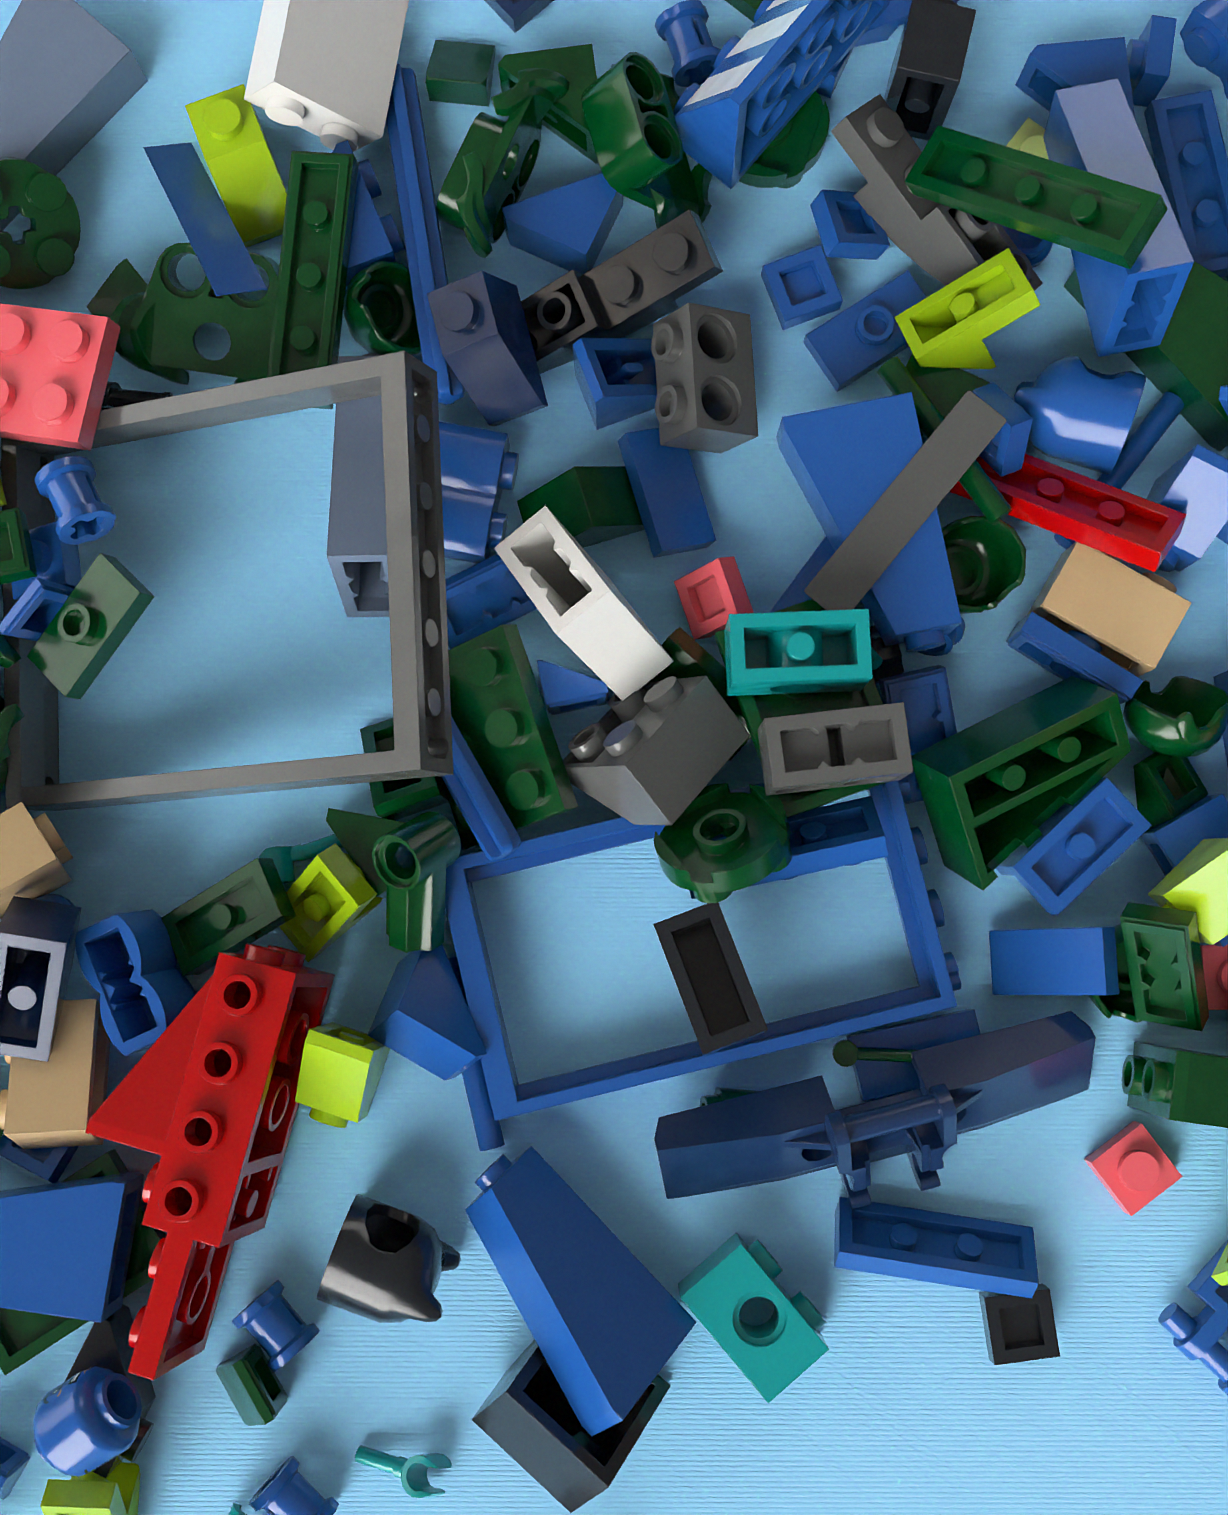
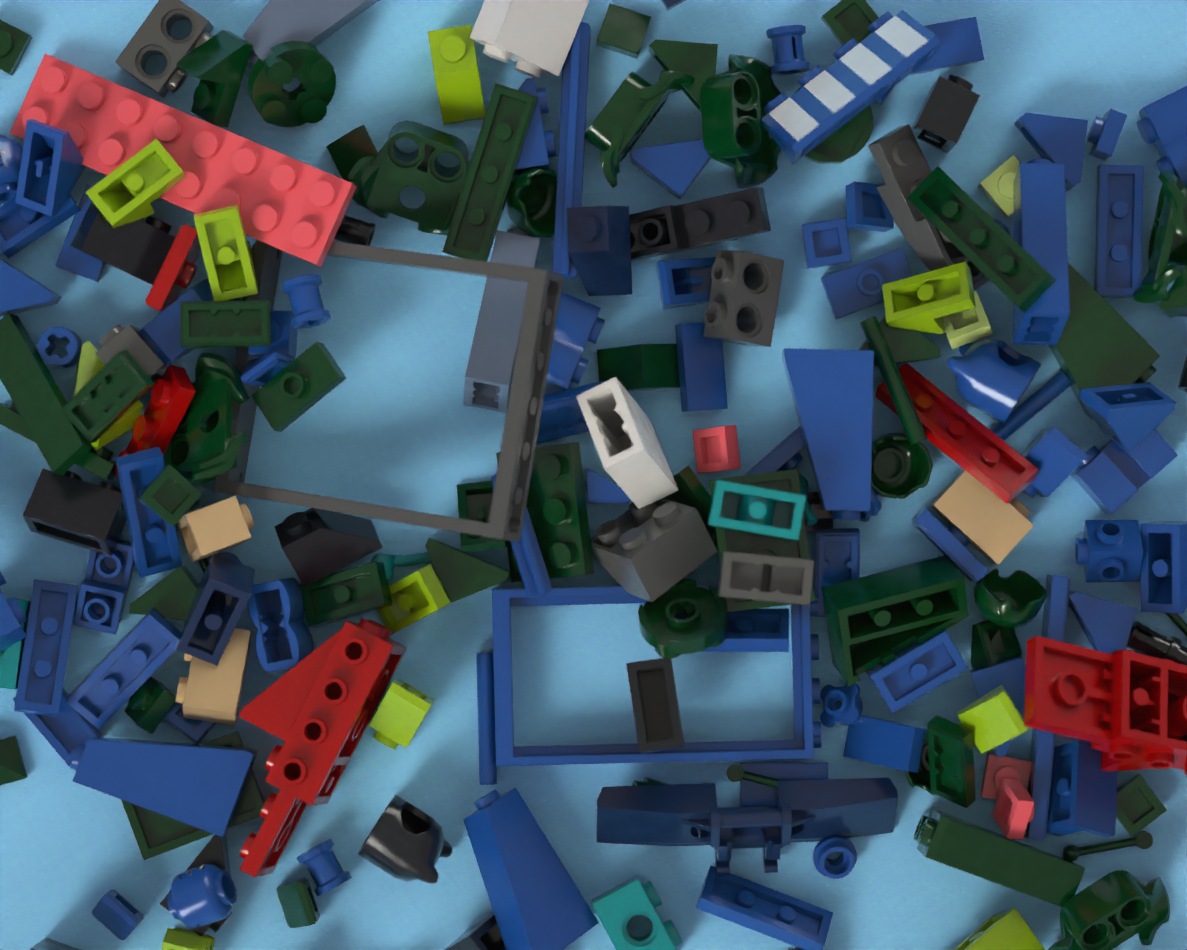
camera: 10 degrees right, 5 degrees up
(180, 848) = (325, 542): none -> black slope
(204, 219) = (424, 111): blue sticker -> none
(414, 867) = (478, 598): dark green piece -> none
(428, 1016) = (465, 687): blue slope -> none
(906, 504) = (851, 426): dark grey sticker -> none
(990, 926) = (851, 705): none -> blue plate
(1008, 447) = (932, 380): blue plate -> none
(1022, 350) = (967, 325): none -> yellowish green plate
(1028, 1155) = (837, 867): none -> blue plate
(1133, 1168) = (908, 889): coral plate -> none

